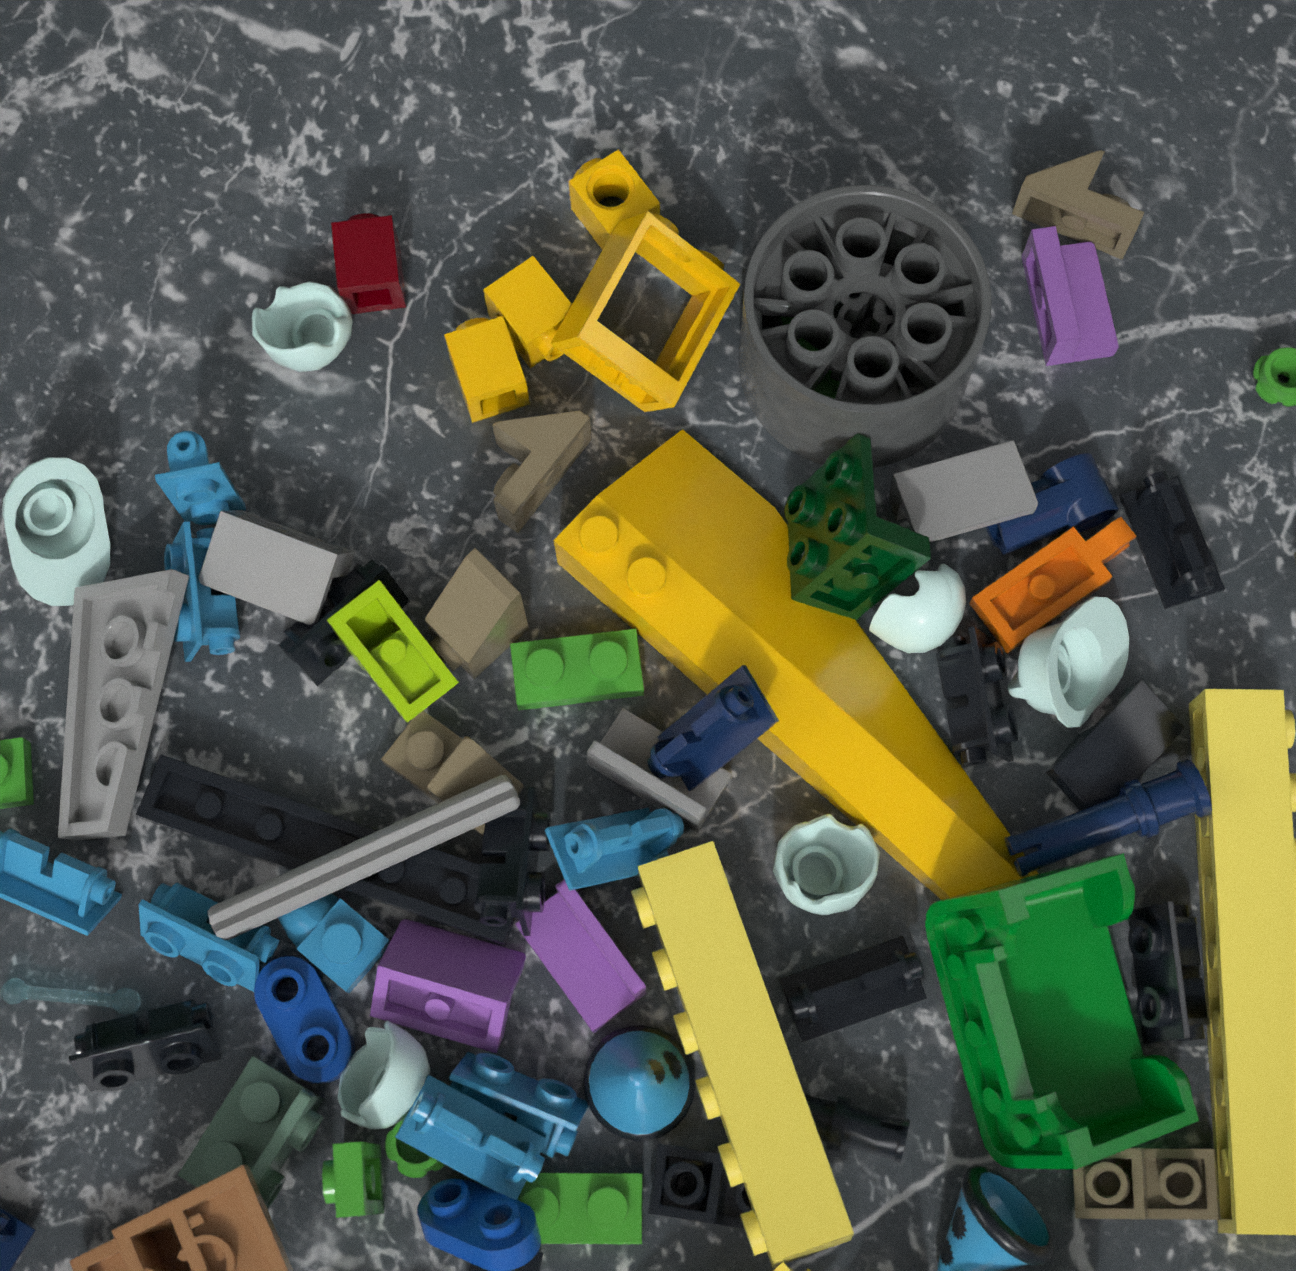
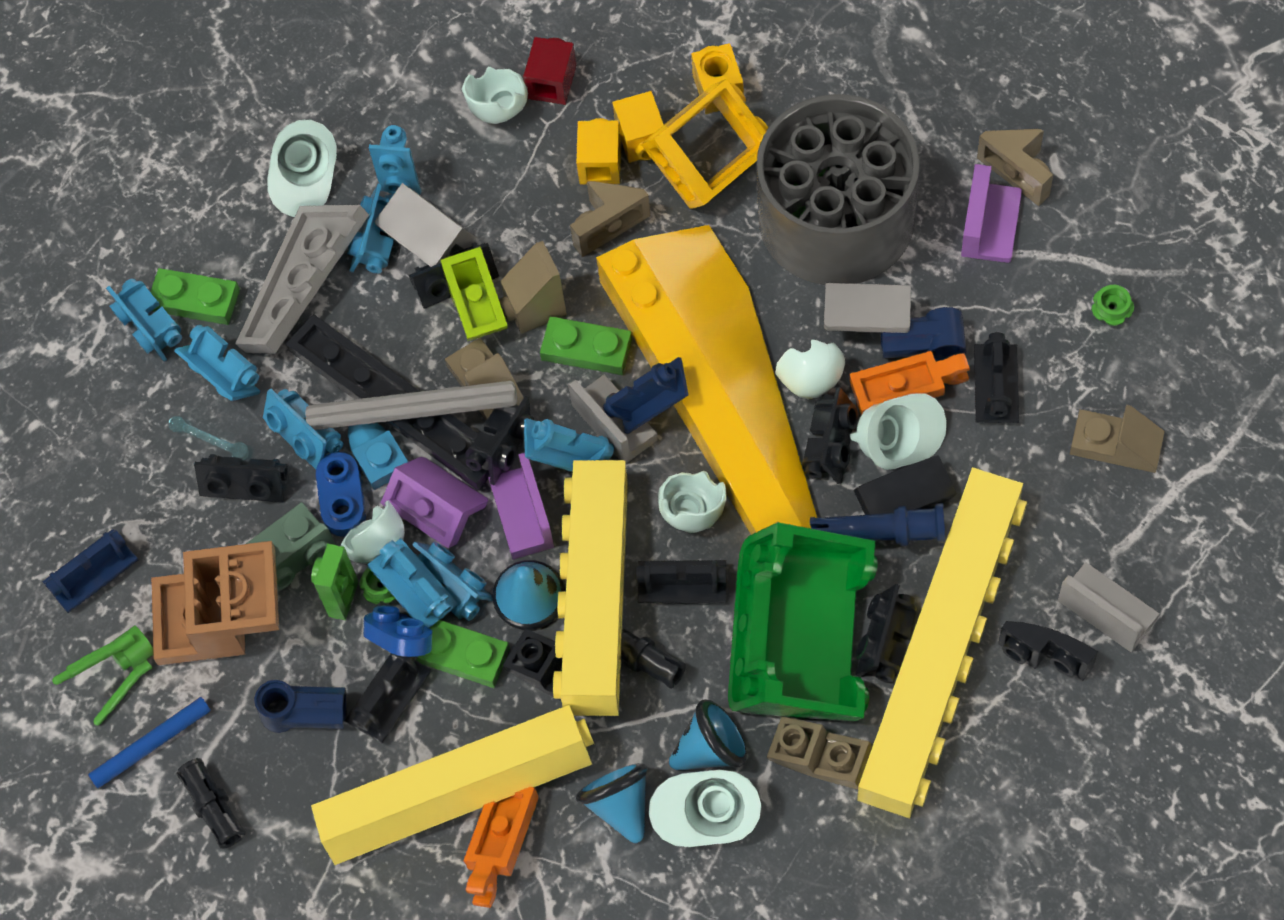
camera: 25 degrees right, 10 degrees down
(838, 547) = (776, 315): dark green bracket -> none

